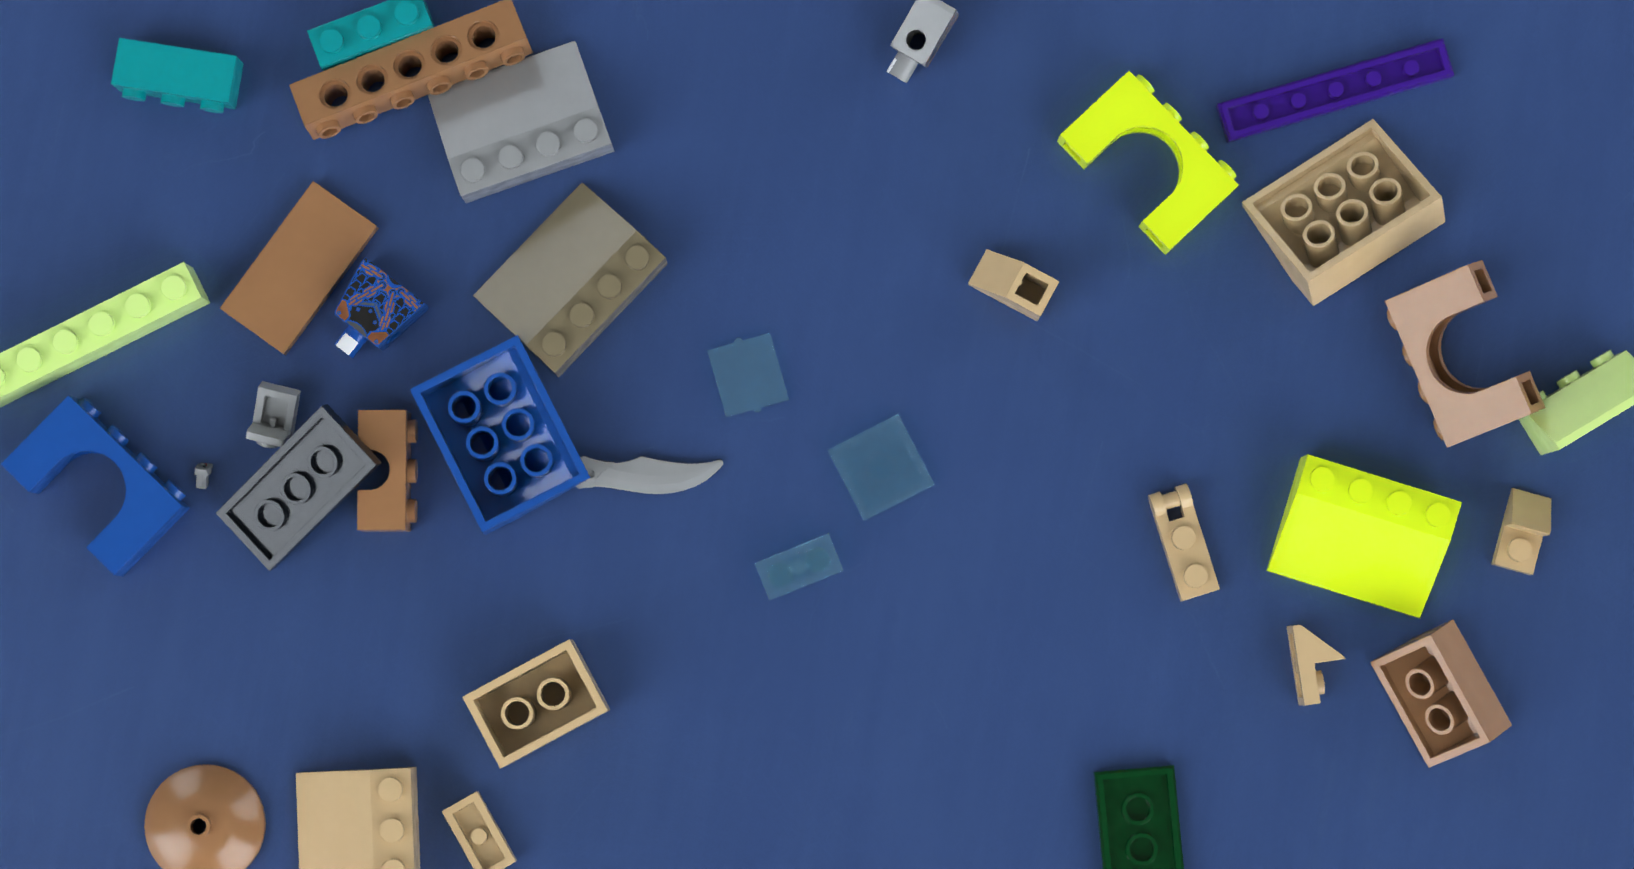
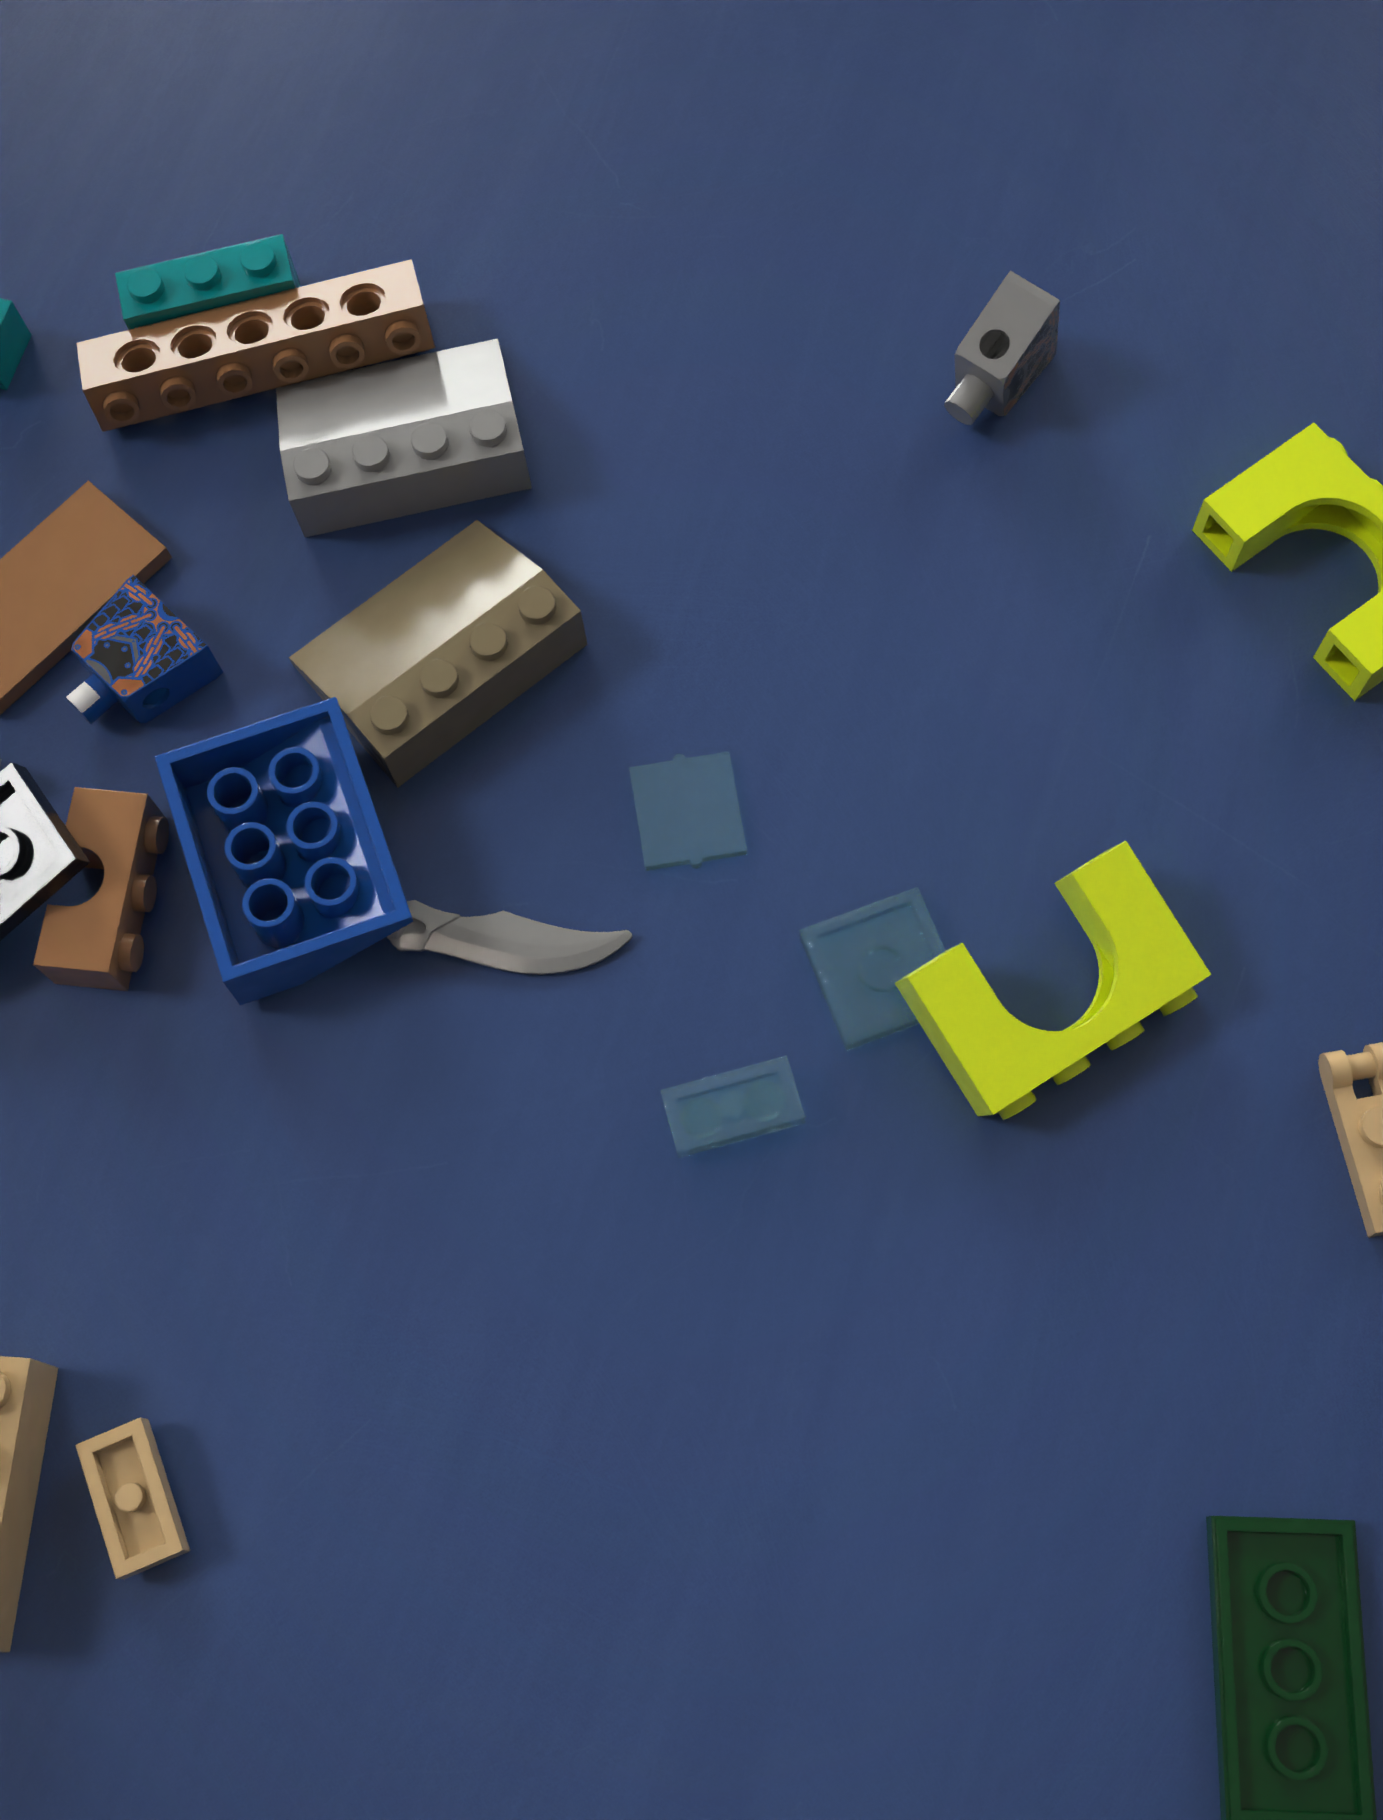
camera: 15 degrees right, 15 degrees down
(536, 703) = (263, 1277): tan brick -> none
(1013, 283) = (1121, 708): tan slope -> none
(1038, 459) = (1141, 965): none -> neon yellow arch

